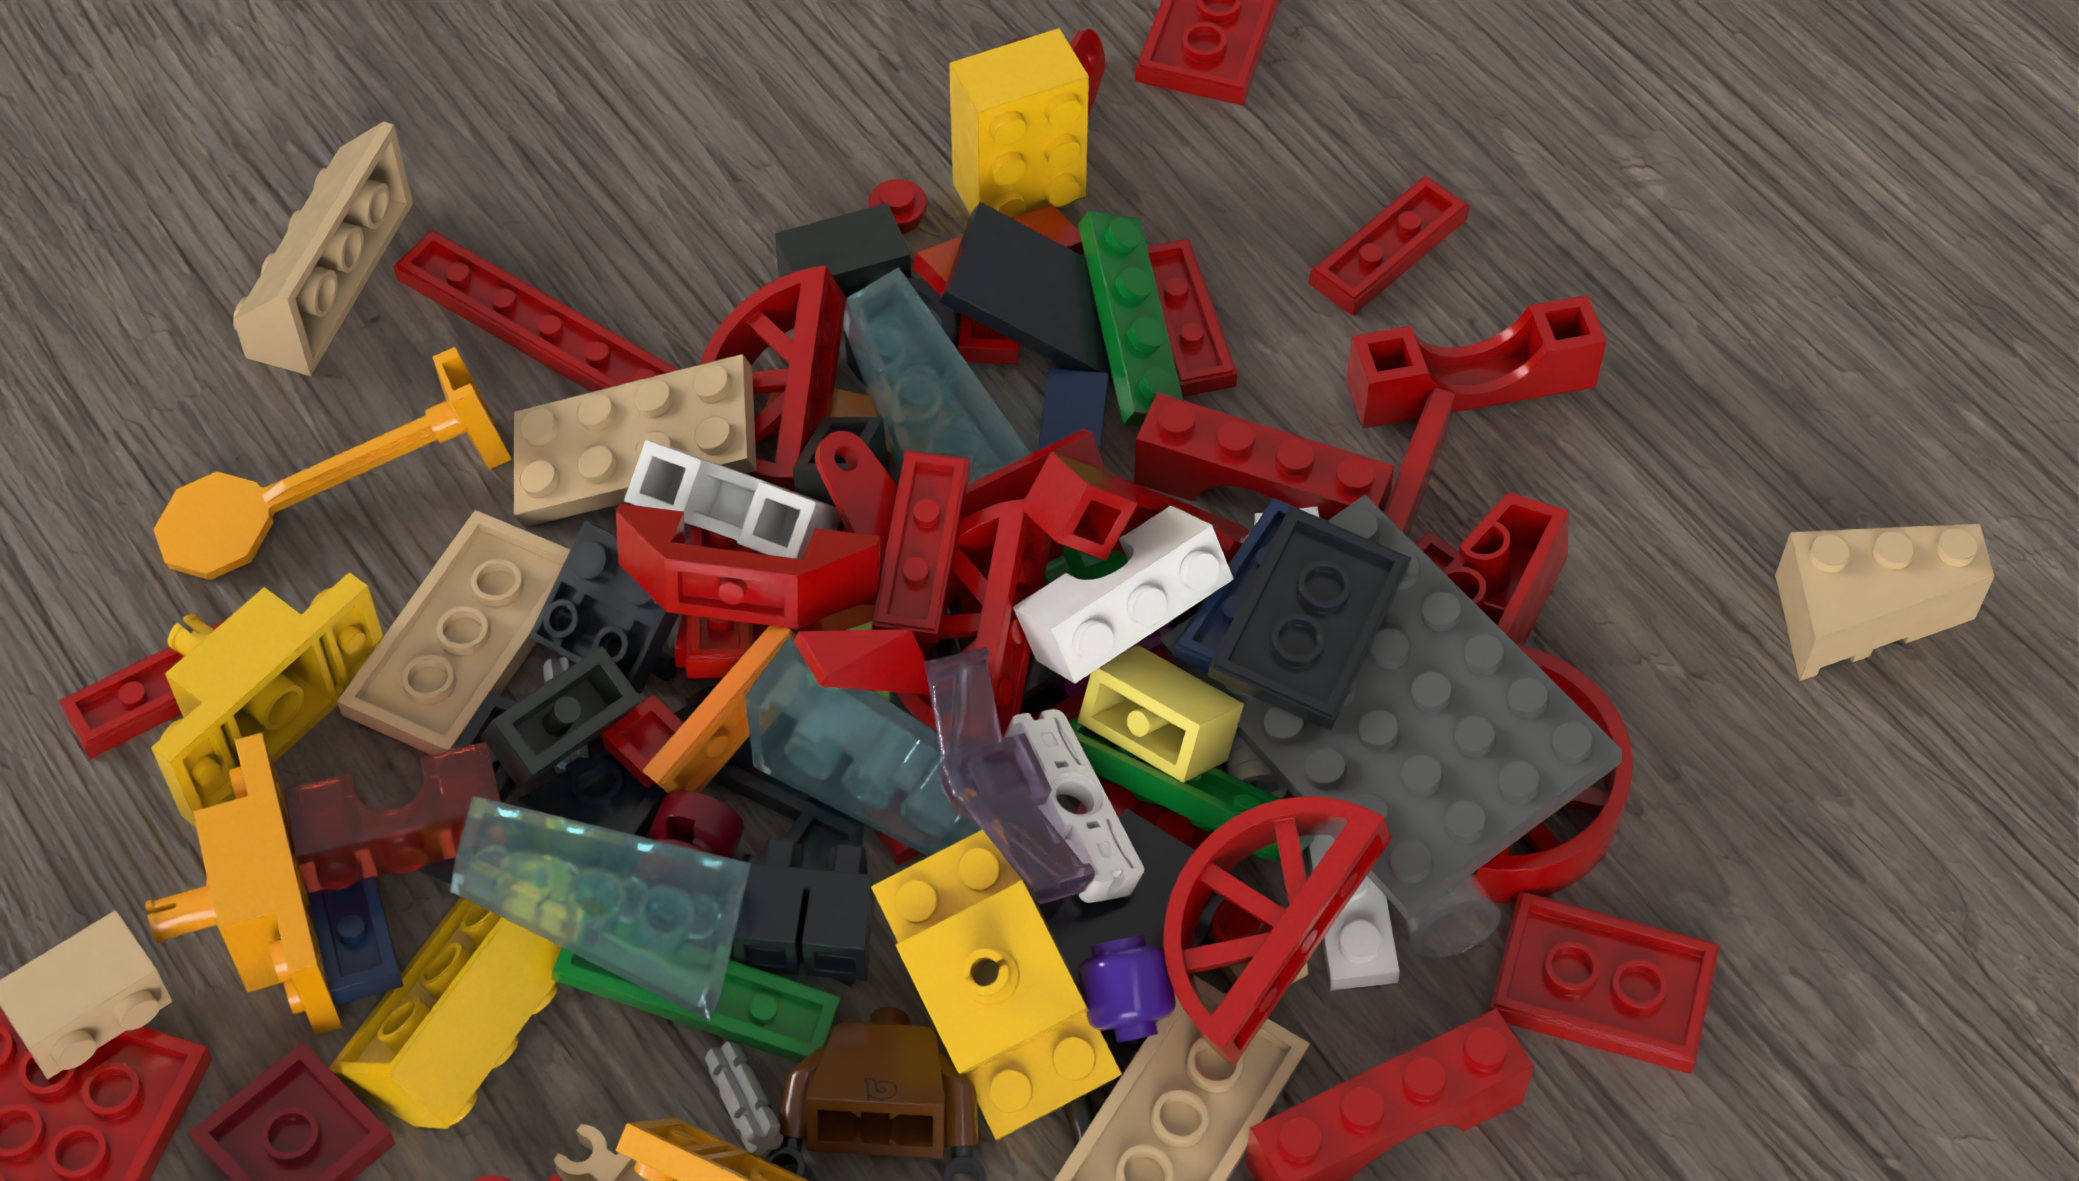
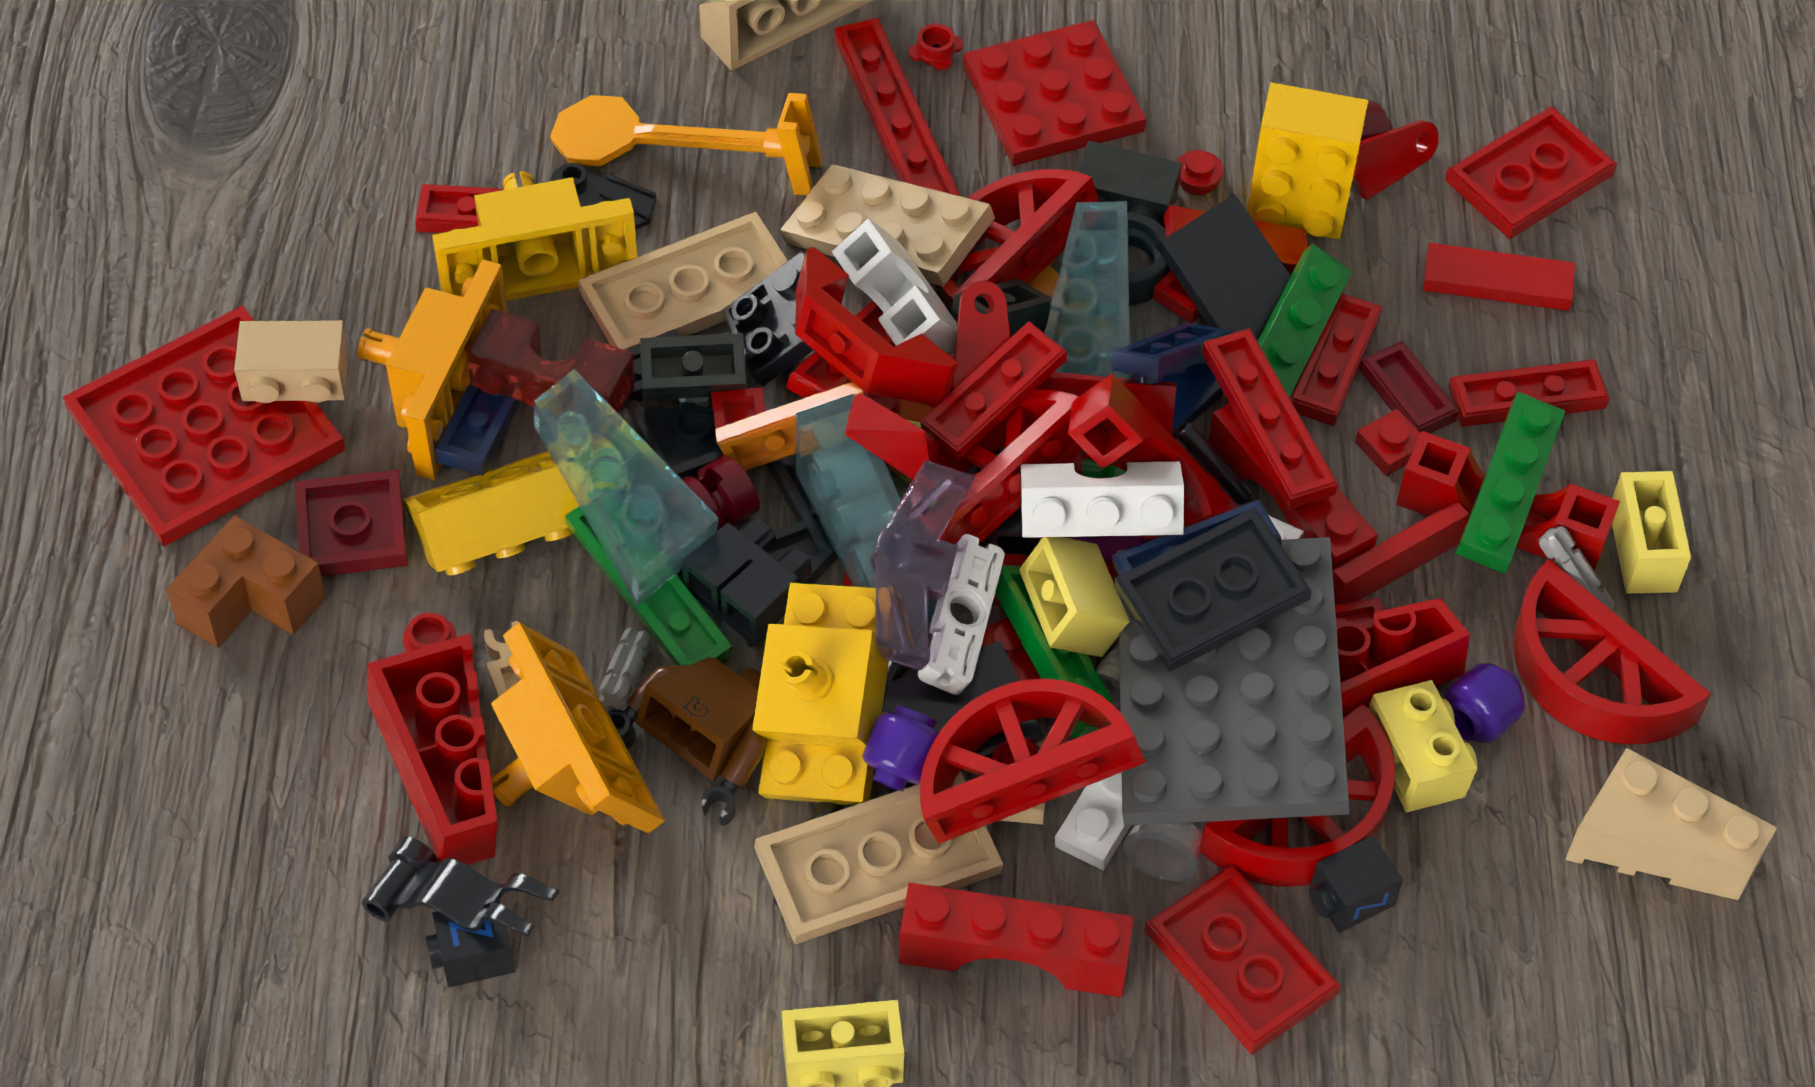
camera: 35 degrees right, 0 degrees up
(292, 582) = (597, 187): none -> black piece
(519, 226) = (936, 46): none -> red plate
(680, 207) = (1053, 92): none -> red plate
(1047, 401) = (1165, 352): none -> dark blue plate
(1170, 487) = (1214, 463): none -> black piece
(1204, 410) = (1269, 419): none -> red tile
(1268, 146) = (1499, 276): none -> red tile
(1279, 308) = (1408, 387): none -> dark red tile
(1306, 369) = (1388, 441): none -> red plate
(1465, 340) = (1510, 483): none -> green plate
(1593, 392) = (1558, 545): none -> light grey axle
(1607, 644) = (1426, 746): none -> light yellow brick
(1616, 573) = (1485, 702): none -> dark purple head
(1636, 312) = (1650, 532): none -> light yellow brick
(1651, 832) = (1355, 884): none -> black brick
(1685, 443) = (1644, 670): none -> red window

